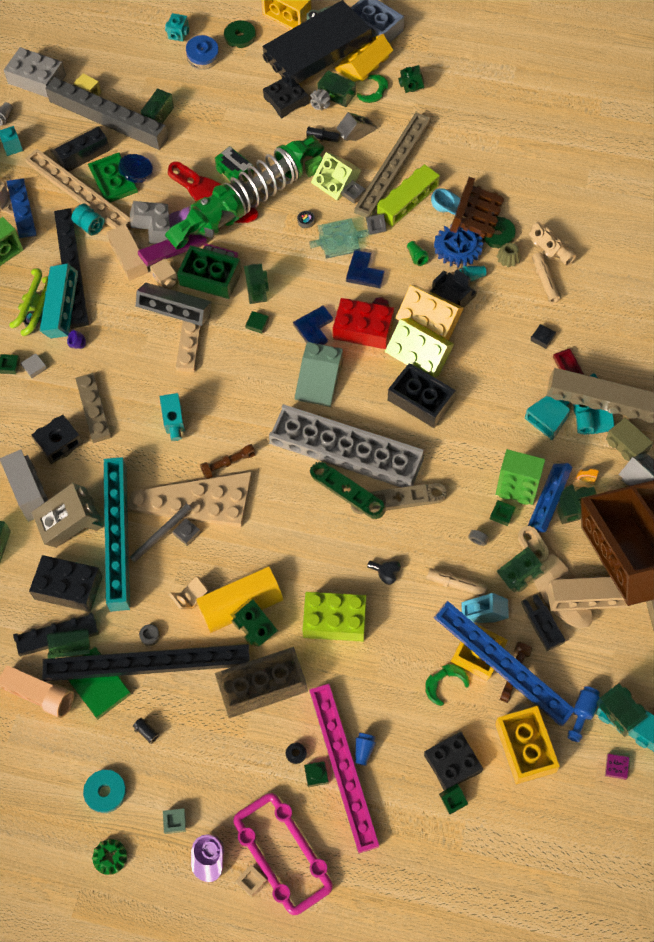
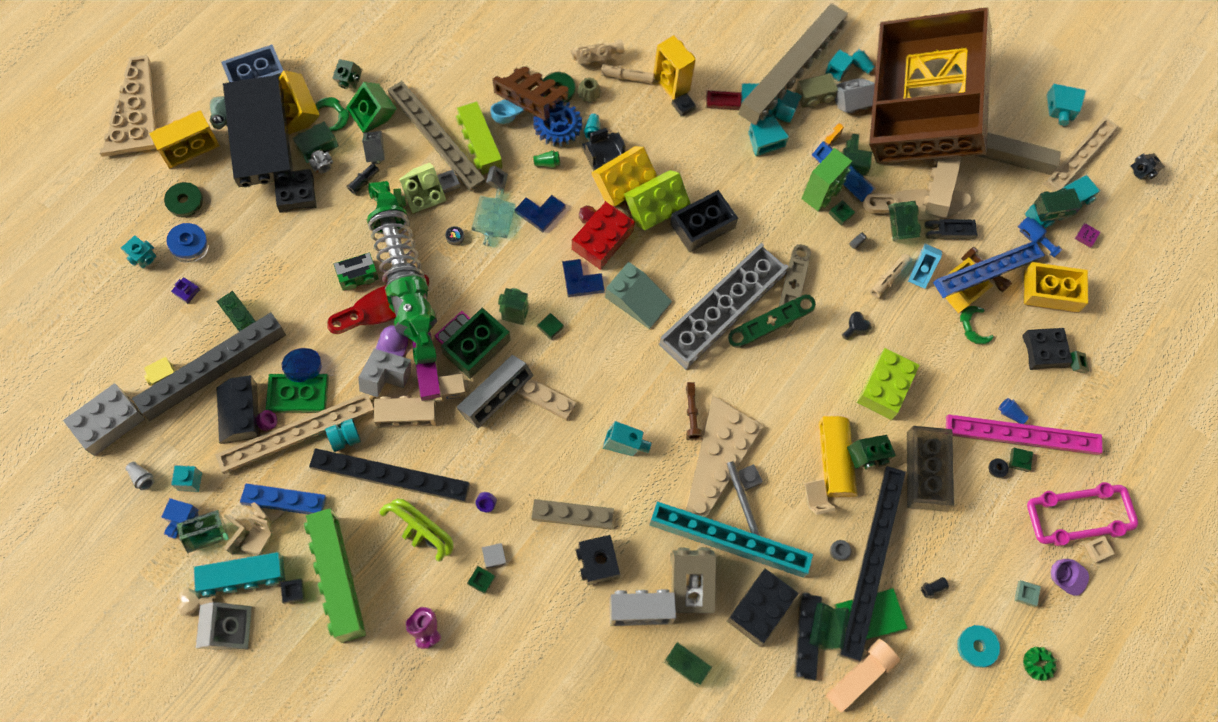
camera: 75 degrees left, 5 degrees up
(59, 301) = (434, 499): teal brick -> none
(79, 167) = (266, 420): none -> magenta tile
(163, 70) = (185, 290): none -> dark purple tile
(393, 109) = (370, 106): none -> green slope
(566, 303) = (674, 67): none -> yellow brick

